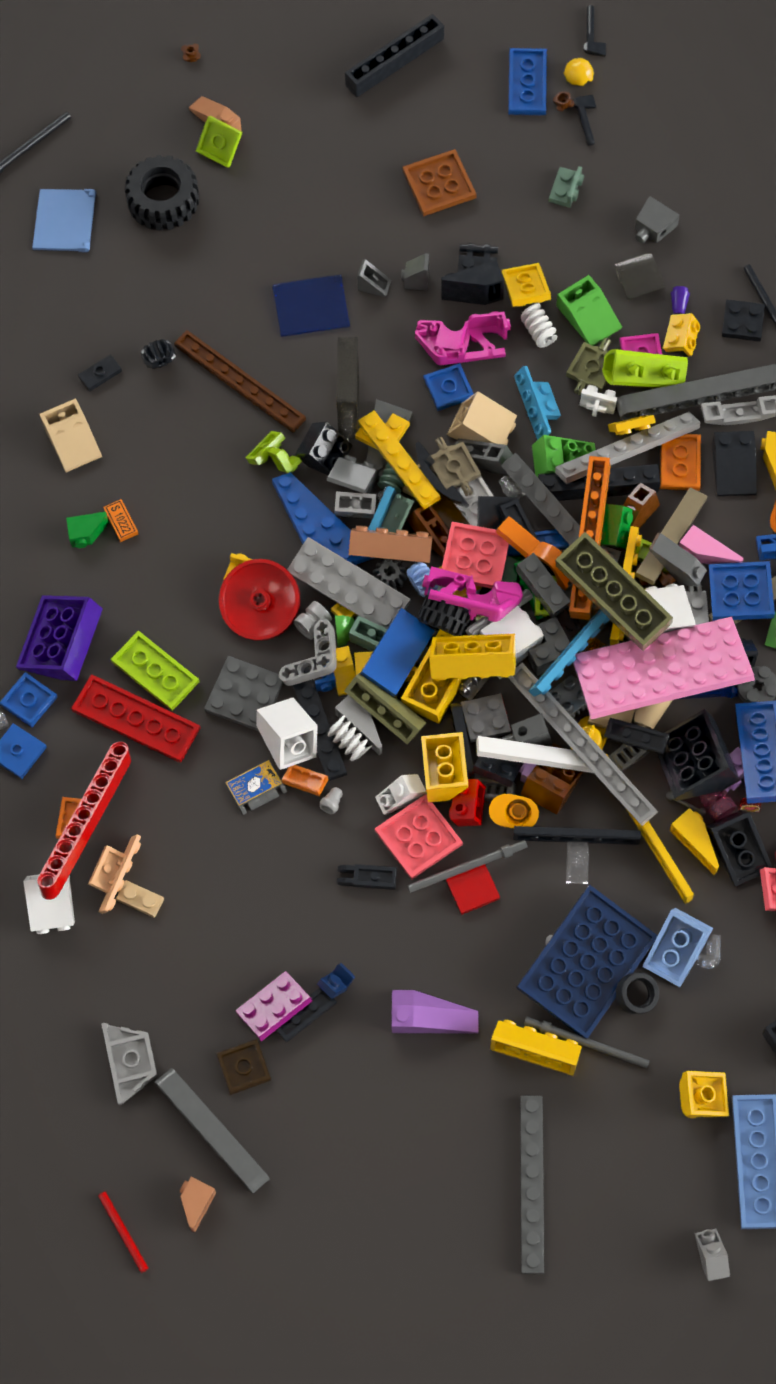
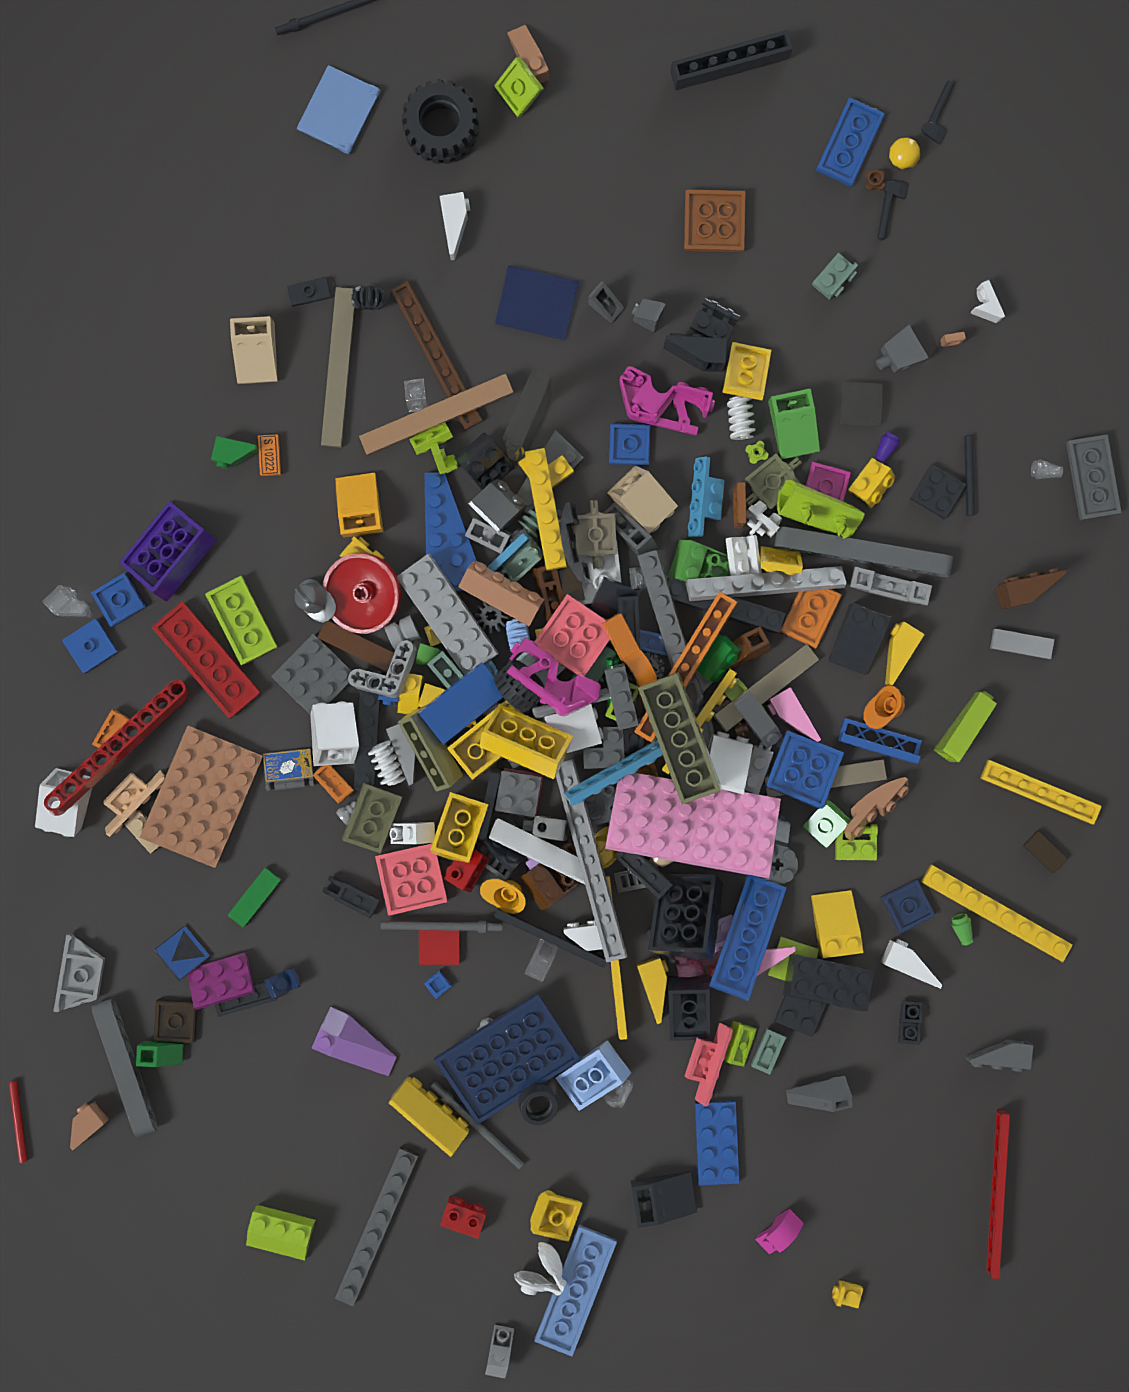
camera: 20 degrees right, 20 degrees up
(154, 424) = (338, 369): none -> dark tan tile
(182, 842) = (201, 796): none -> nougat plate
(204, 259) = (455, 218): none -> white slope
(218, 626) = (315, 600): none -> dark grey piece
(224, 529) = (358, 505): none -> light orange slope
(224, 994) = (182, 953): none -> piece
(236, 419) = (415, 395): none -> clear bracket
(242, 1099) = (159, 1054): none -> green slope
(261, 426) = (436, 414): none -> medium nougat tile
(273, 651) = (356, 645): none -> reddish brown tile
(273, 916) = (254, 897): none -> green tile
(356, 794) = (371, 818): none -> olive plate
(438, 1230) = (280, 1232): none -> lime slope
(487, 925) = (437, 984): none -> blue tile
(566, 354) = (754, 458): none -> lime plate
(572, 393) = (739, 505): none -> dark orange tile
(595, 433) = (743, 555): none -> white bracket
(612, 817) = (584, 935): none -> white slope
(614, 1134) = (463, 1217): none -> red brick
(693, 195) = (952, 339): none -> nougat tile
(711, 158) = (990, 308): none -> white slope
(713, 1167) = (533, 1282): none -> white animal

